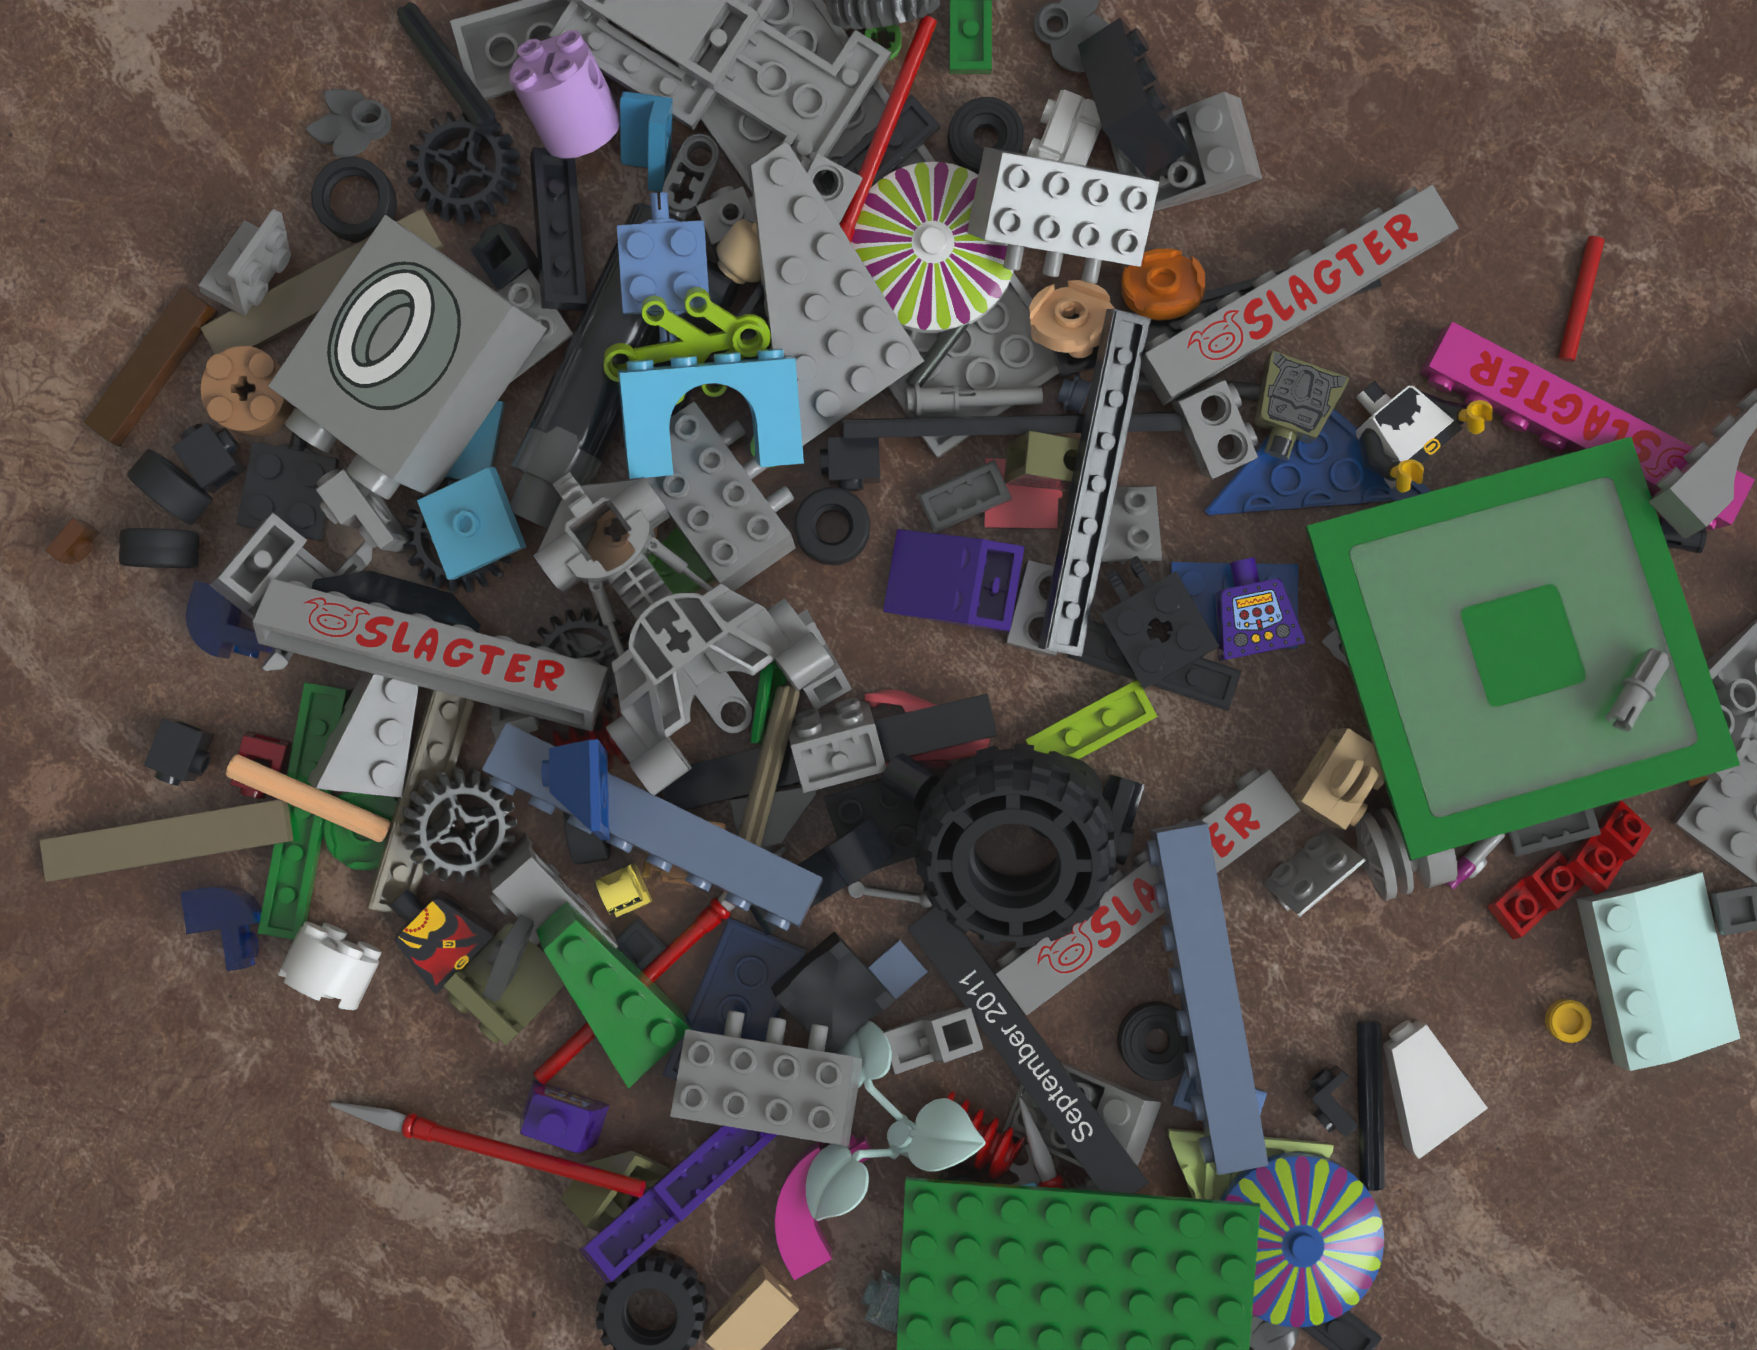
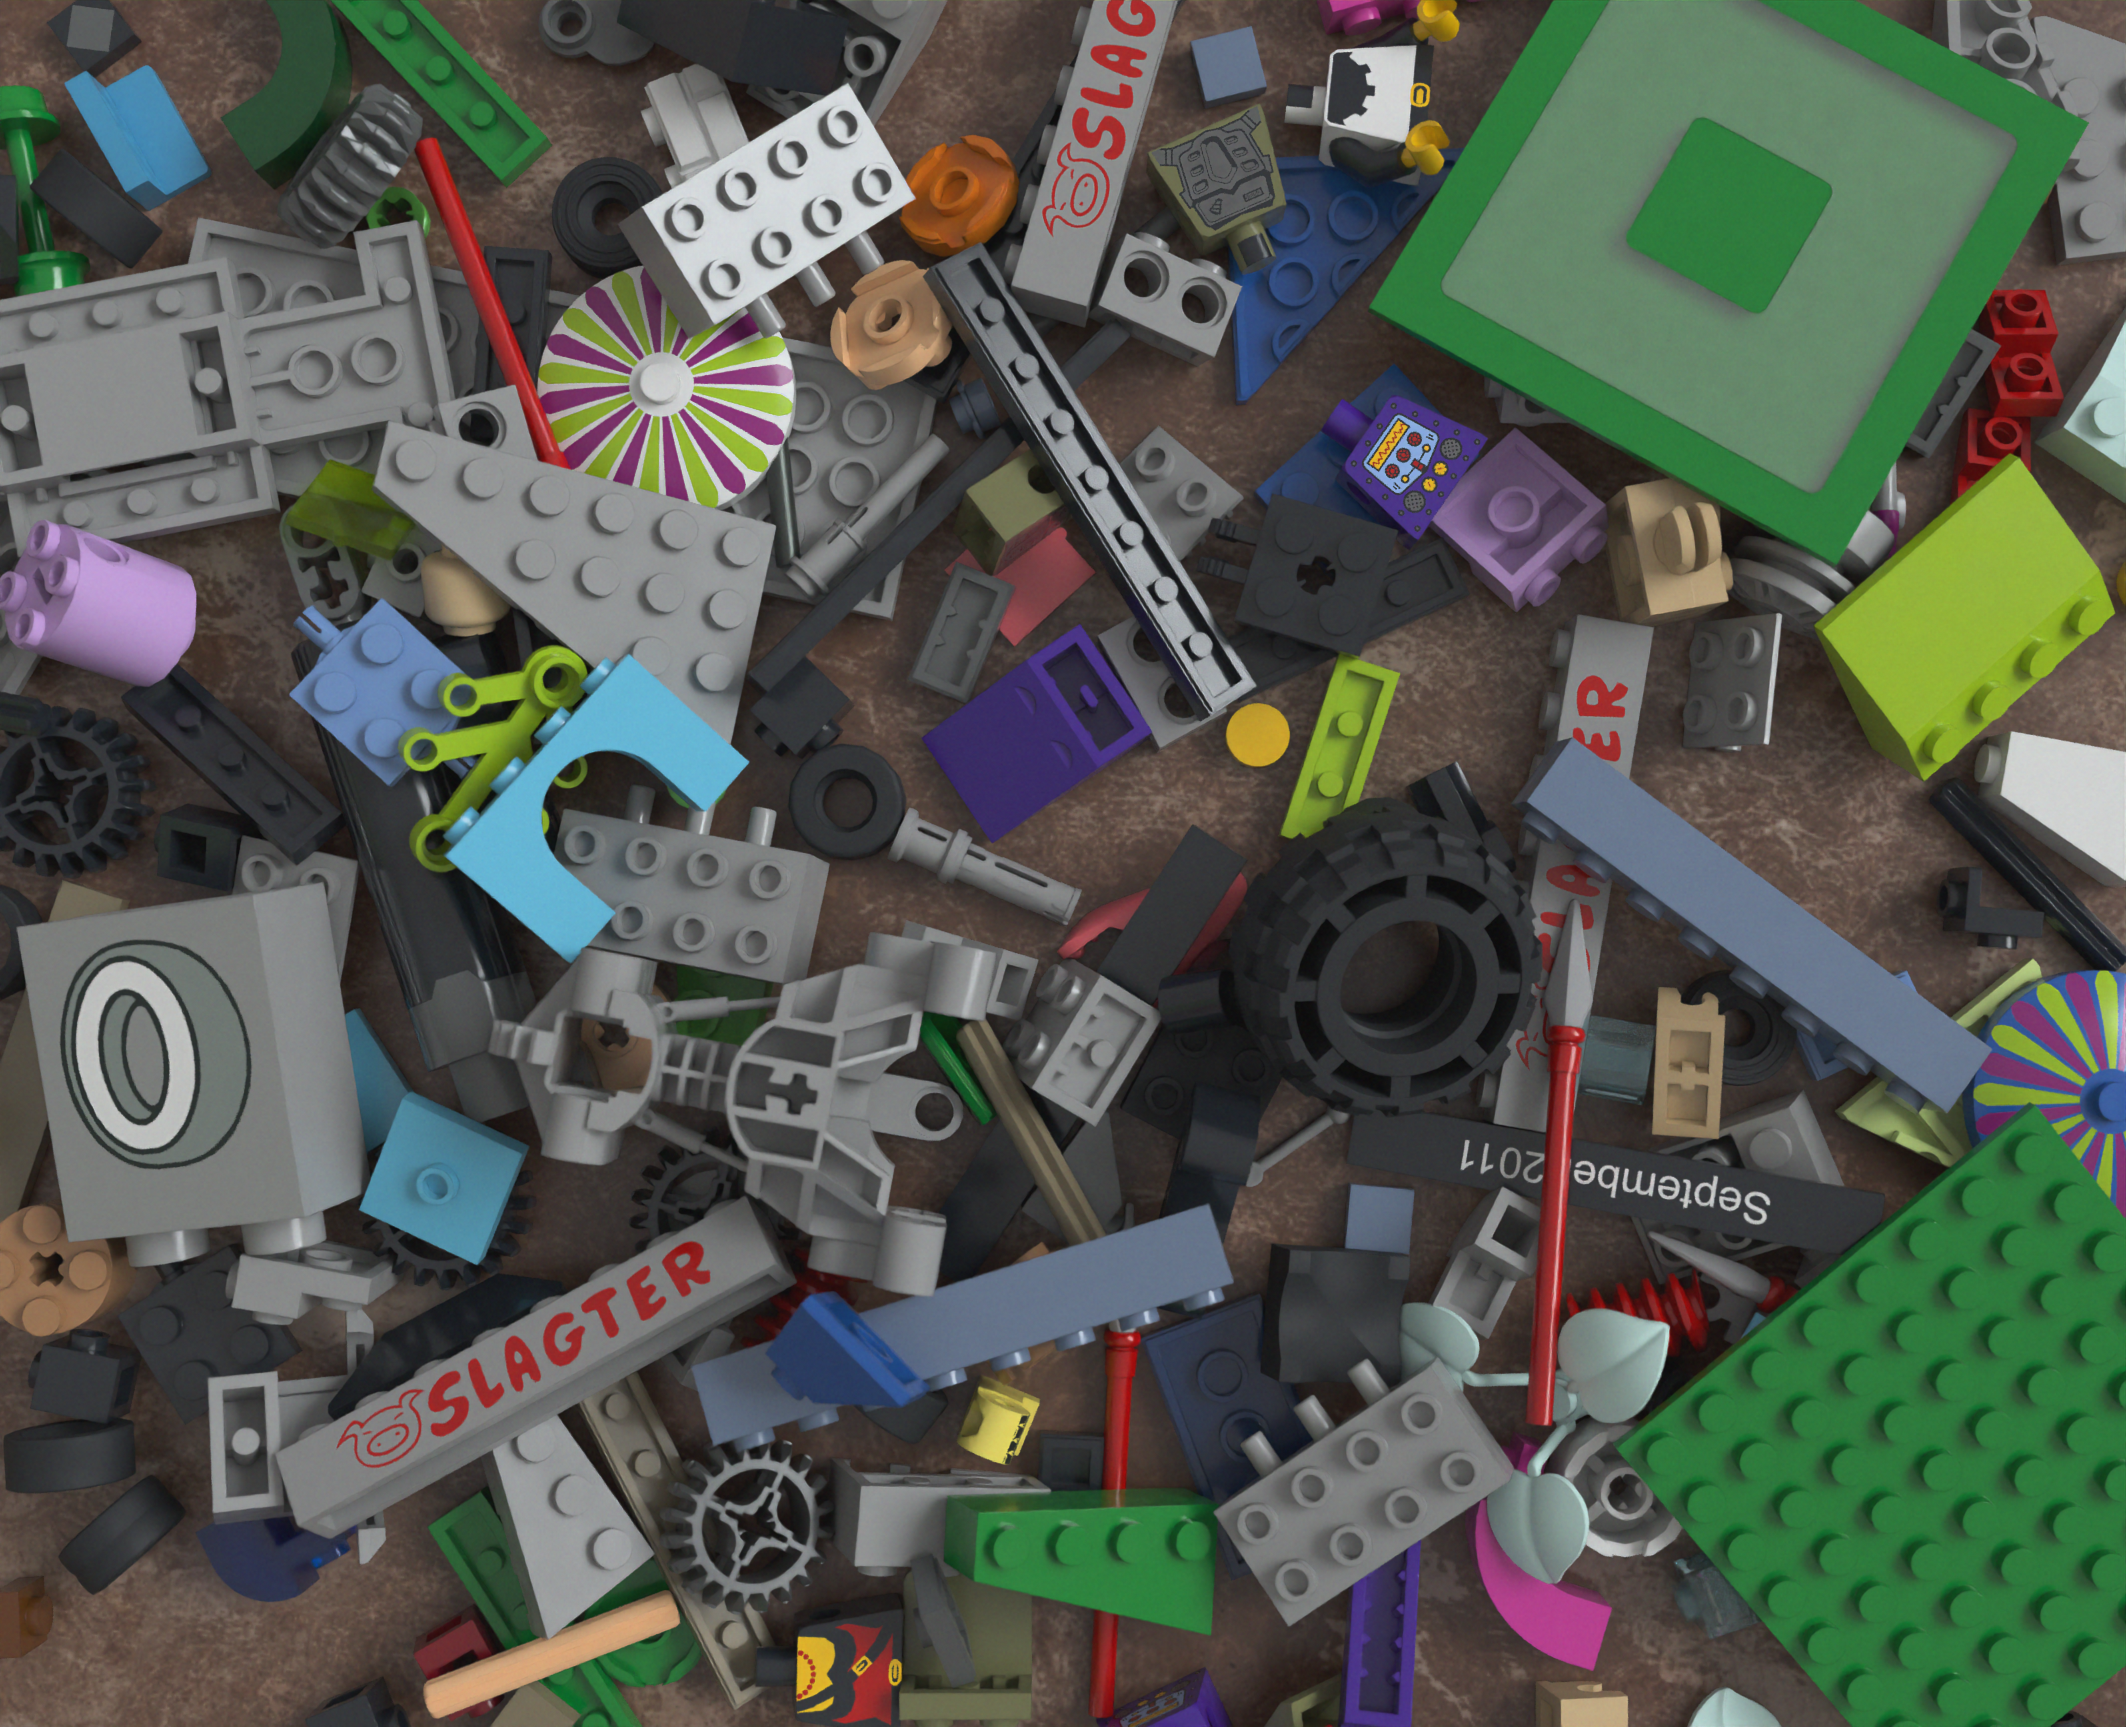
camera: 45 degrees left, 0 degrees up
(647, 135) = (232, 564): dark azure panel -> none
(726, 163) = (349, 513): none -> clear neon green piece
(858, 602) = (957, 858): none -> light grey pin
(870, 1221) = (1617, 1524): none -> white brick
(1060, 681) = (1257, 735): none -> yellow tile
(1084, 1001) = (1617, 1060): none -> clear light blue brick
(1085, 950) = (1567, 1004): none -> red piece
(1114, 1035) = (1687, 1066): none -> tan hinge
(1286, 698) = (1521, 521): none -> lavender plate
(1355, 344) = (1228, 67): none -> sand blue tile
(1453, 948) = (1963, 620): none -> lime slope
(1638, 689) = (1903, 144): light grey axle -> none

